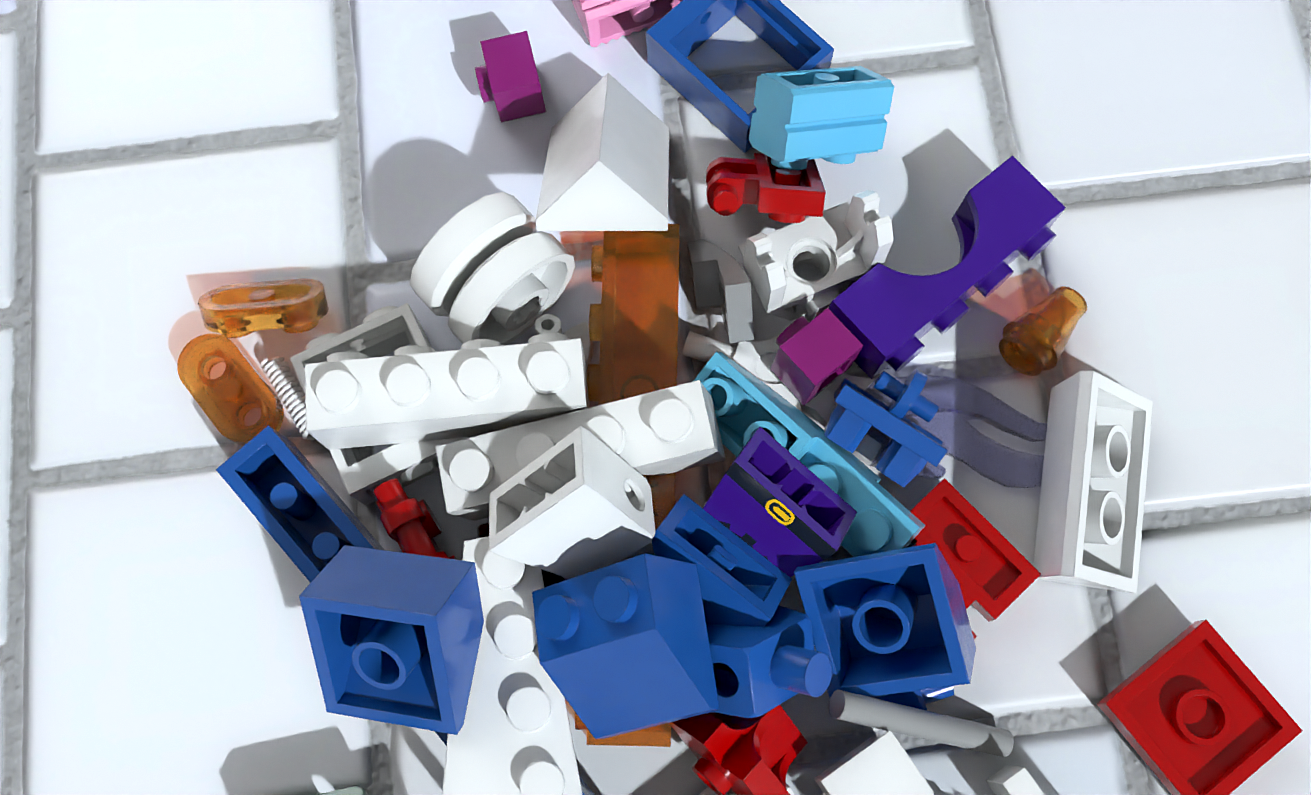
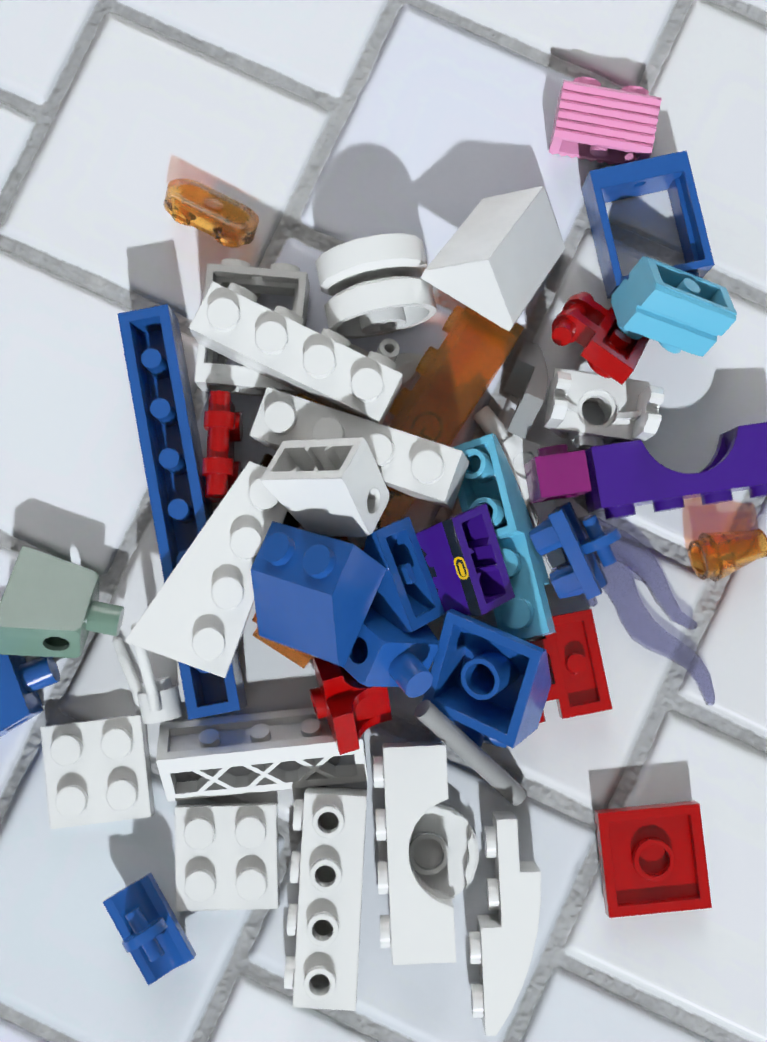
camera: 30 degrees right, 10 degrees up
(233, 393) = (158, 260): clear orange plate -> none
(288, 391) = (195, 282): white piece -> none
(395, 636) = (171, 496): blue slope -> none
(510, 77) = (475, 144): magenta plate -> none
(1093, 484) = (688, 674): white slope -> none

